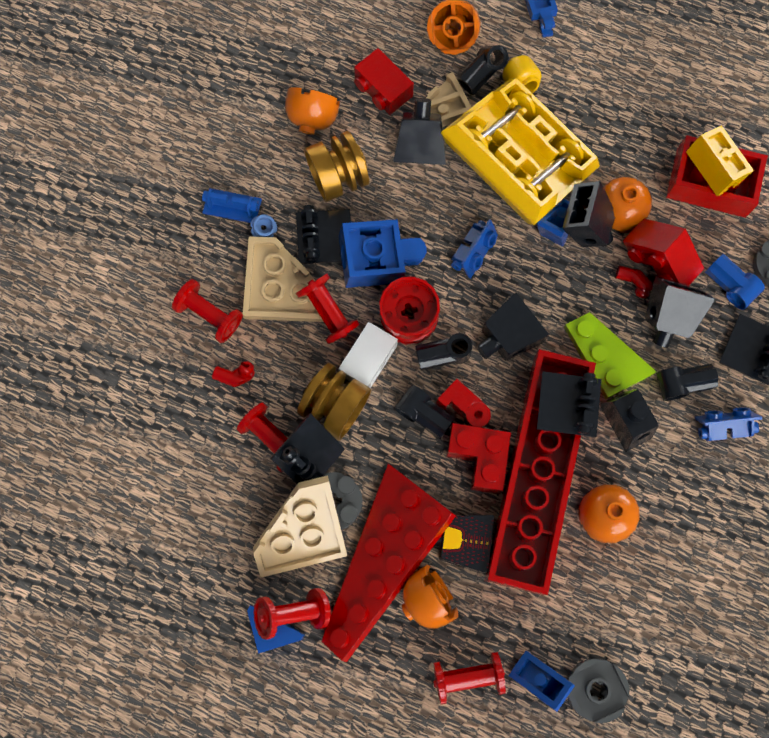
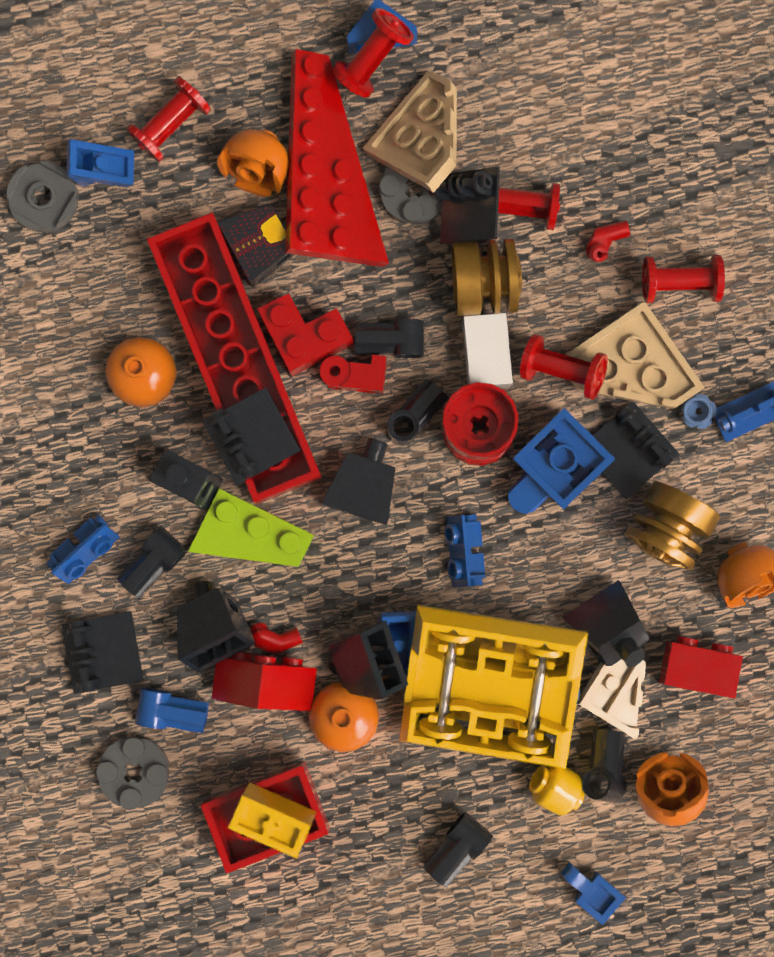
camera: 145 degrees right, 10 degrees up
(600, 85) = (464, 842): none -> black piece

